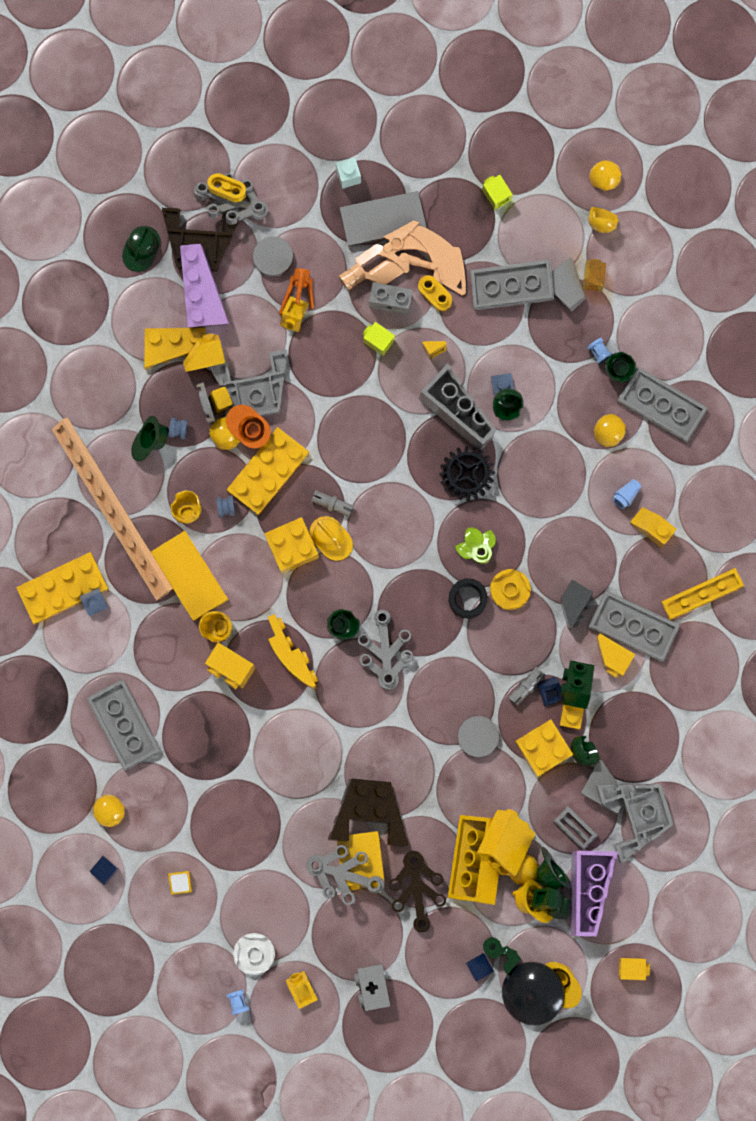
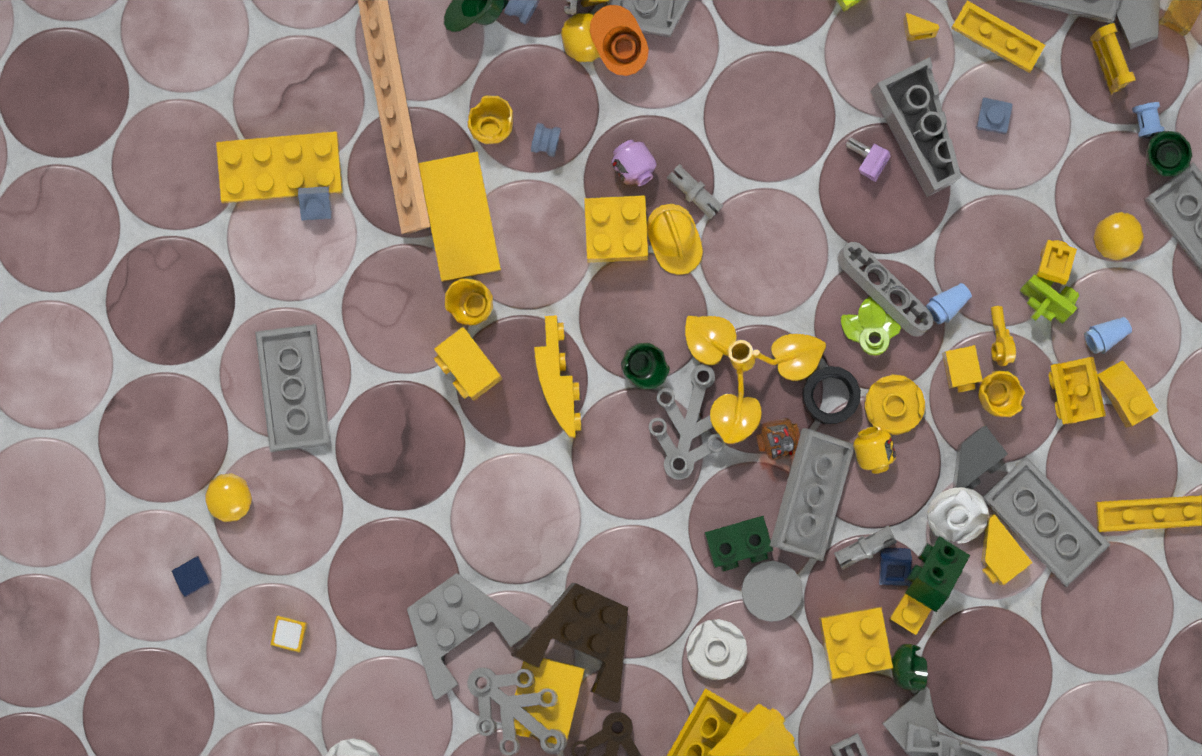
camera: 20 degrees right, 5 degrees up
(268, 471) = (623, 112): yellow plate -> none
(279, 833) = (450, 617): none -> light grey wing
(287, 500) = (633, 163): none -> lavender head
(380, 590) = (715, 336): none -> yellow plant
(438, 441) = (874, 161): none -> lavender piece
(445, 638) = (778, 438): none -> head
(445, 713) = (739, 542): none -> dark green brick
(456, 459) = (900, 235): black gear -> none
(457, 787) = (716, 649): none -> white tile
(477, 516) = (888, 286): none -> light grey beam
(480, 665) = (812, 494): none -> light grey tile
(485, 335) = (998, 36): none -> yellow plate
(507, 404) = (991, 146): dark green hair -> none
(508, 622) = (874, 449): none -> yellow head
(518, 514) = (948, 303): none -> light blue cone
(544, 550) = (962, 368): none -> yellow brick
(561, 321) = (1111, 58): none -> yellow plate
(565, 527) = (1004, 348): none -> yellow plate
(574, 556) = (1001, 394): none -> yellow hair
(576, 460) = (1056, 261): none -> yellow bracket
(577, 642) = (958, 515): none -> white tile
(581, 487) = (1048, 301): none -> lime hips
(621, 536) = (1077, 390): none -> yellow bracket

